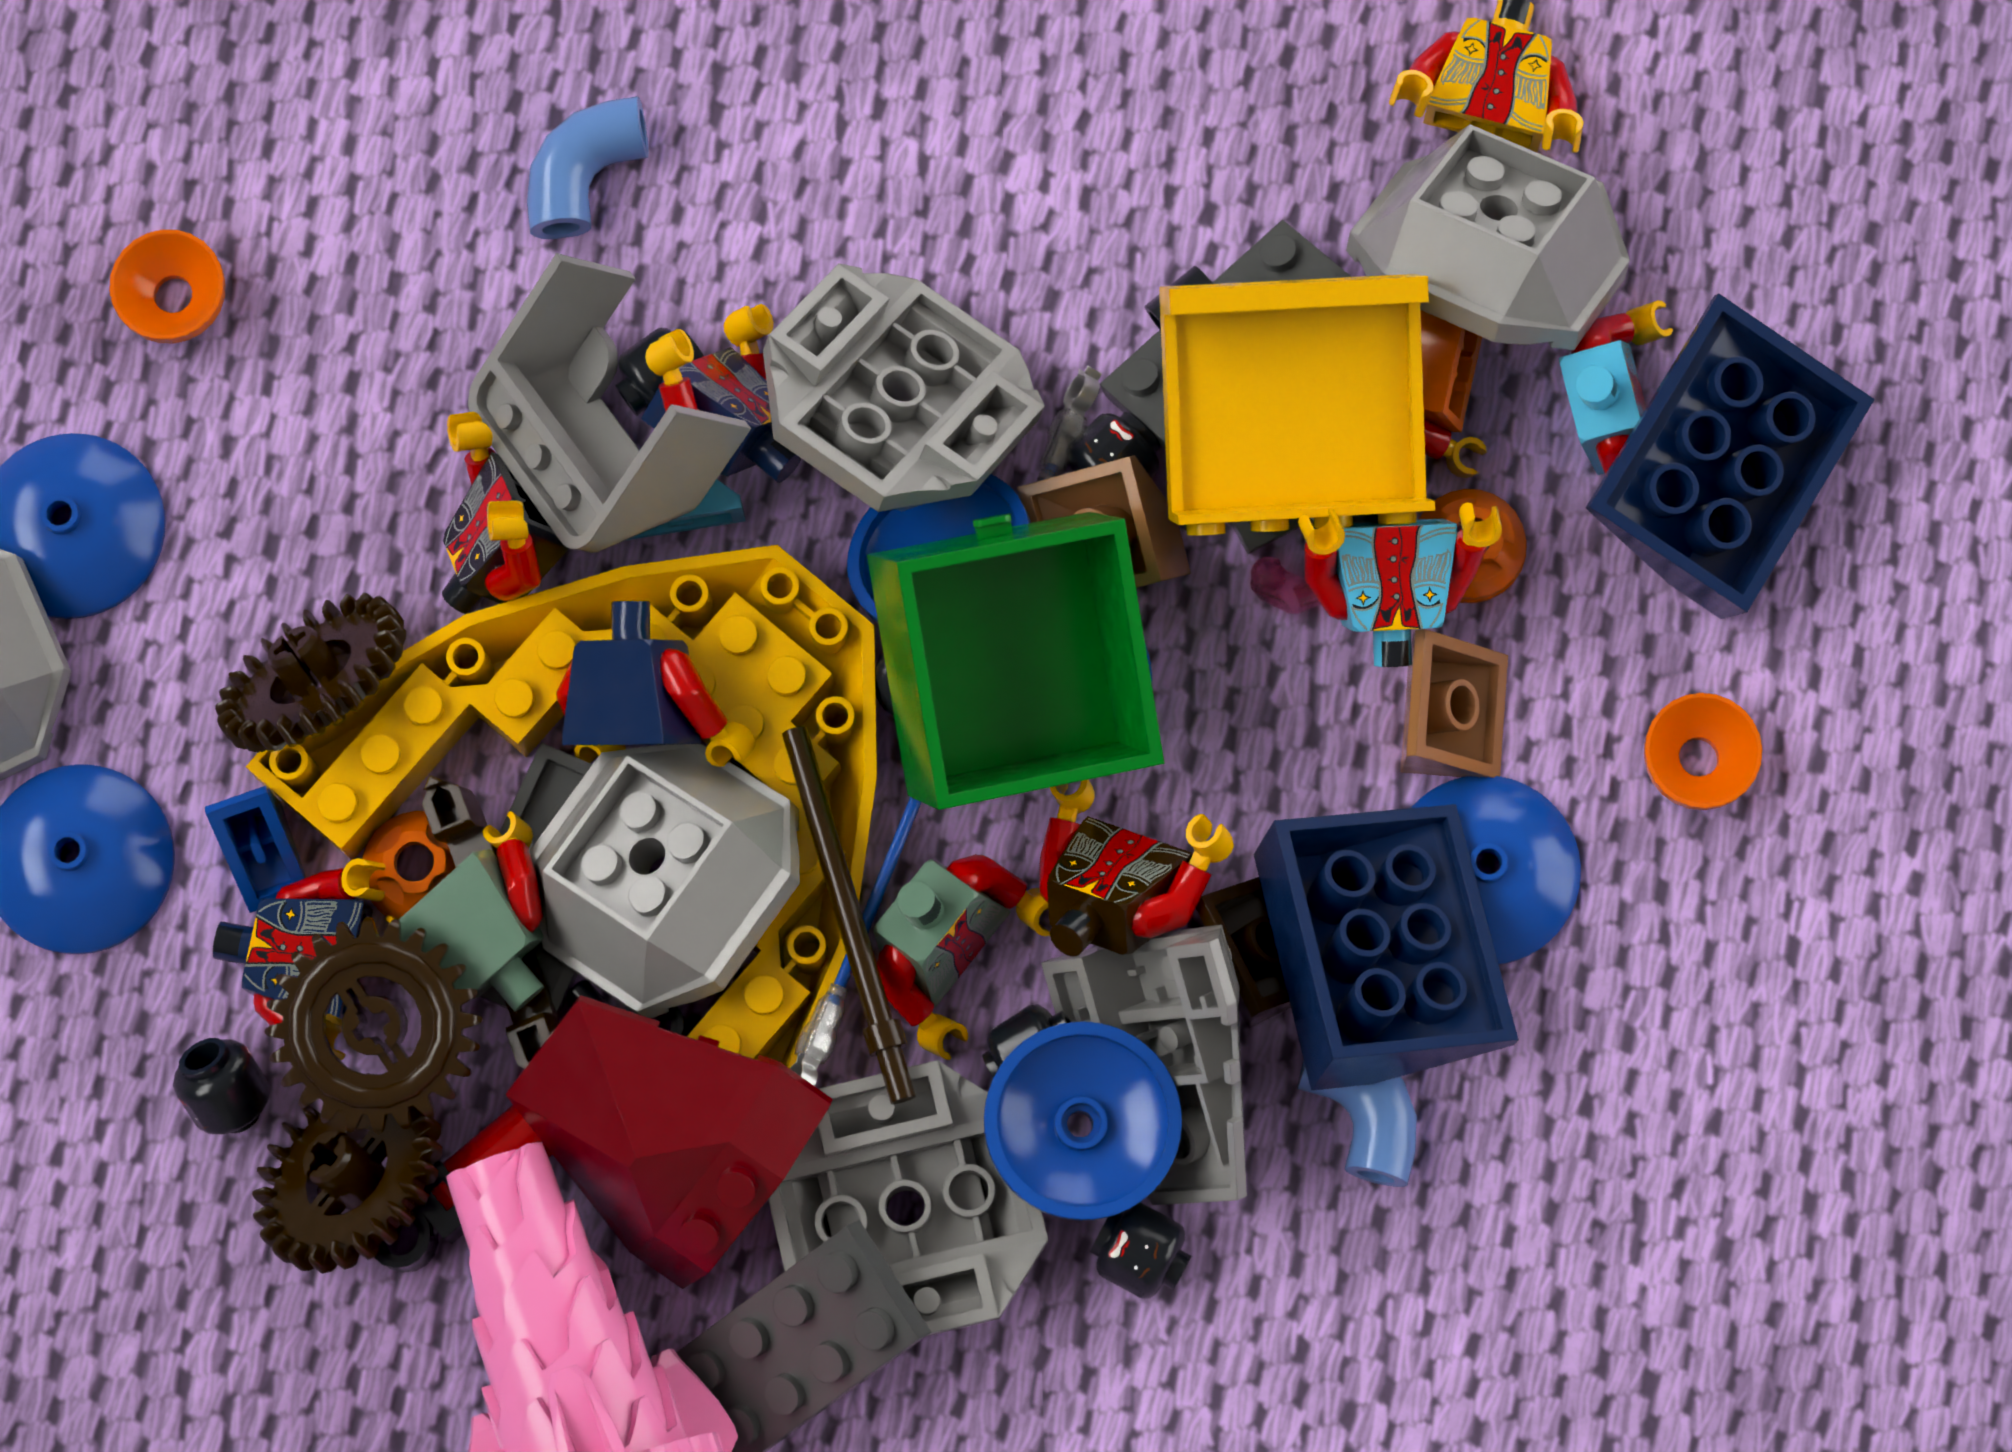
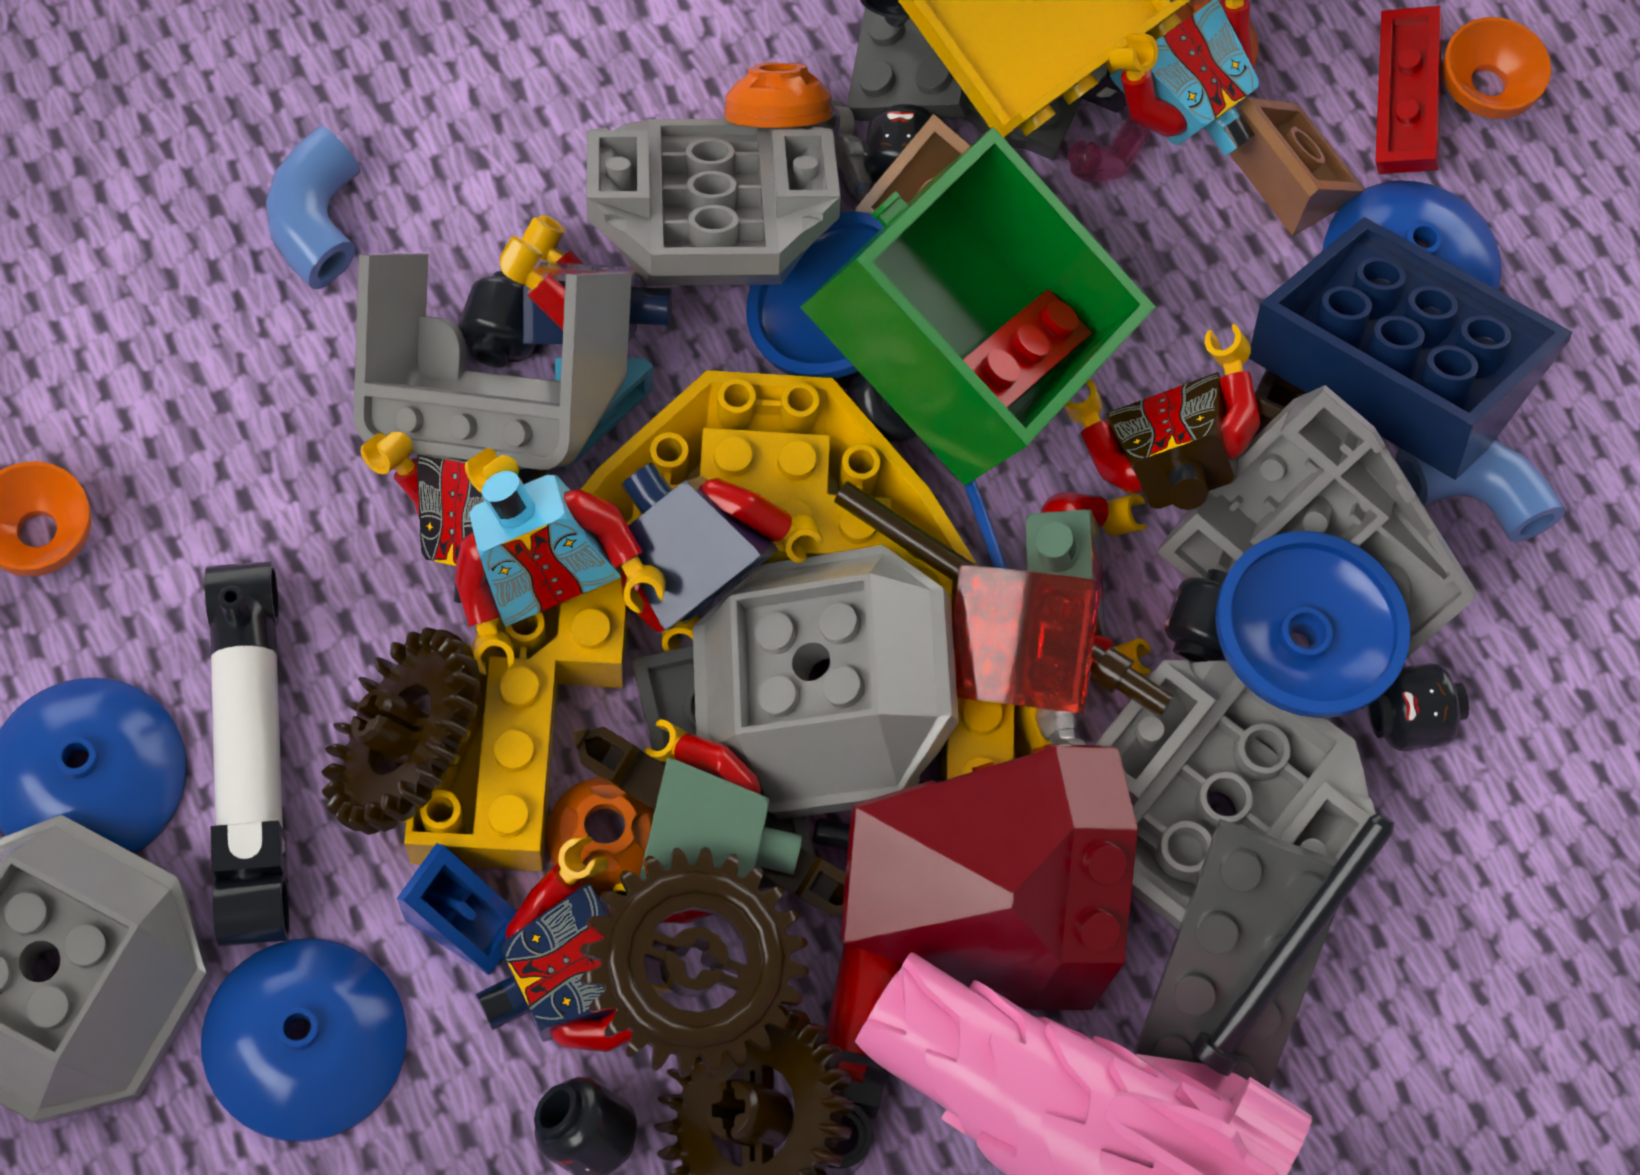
camera: 50 degrees left, 10 degrees down
(142, 677) = (248, 831): none -> piece
(505, 612) = (538, 550): none -> torso
(727, 1393) = (1219, 1047): none -> black bar
(824, 961) = (1024, 637): none -> clear red slope
(1025, 721) = (1027, 347): none -> red plate
(1034, 342) = (778, 97): none -> orange piece
(1610, 715) = (1409, 90): none -> red plate

